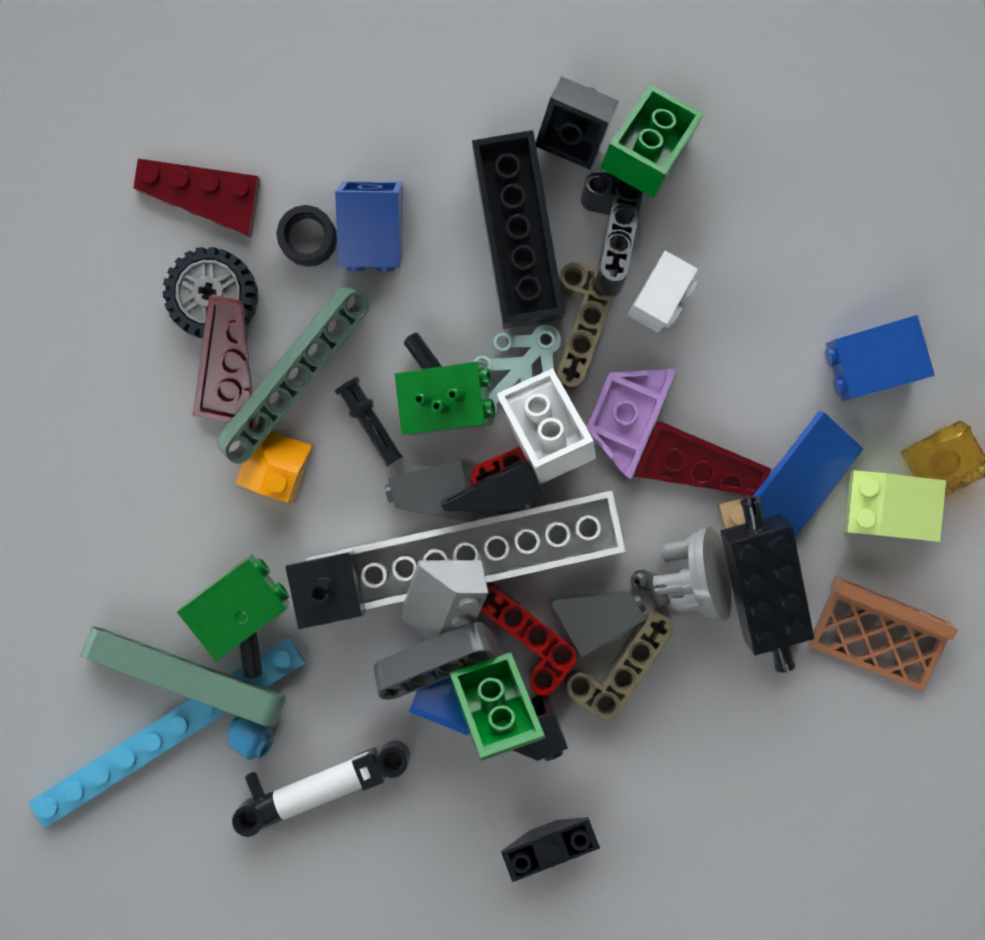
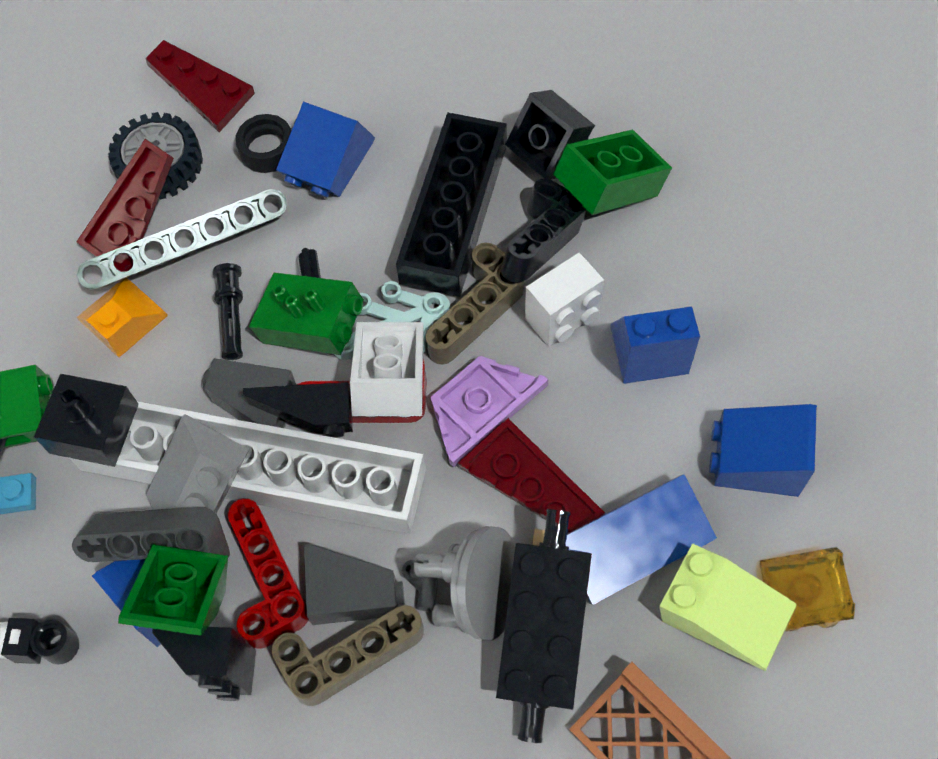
camera: 30 degrees right, 25 degrees down
(752, 295) = (655, 344): none -> blue slope

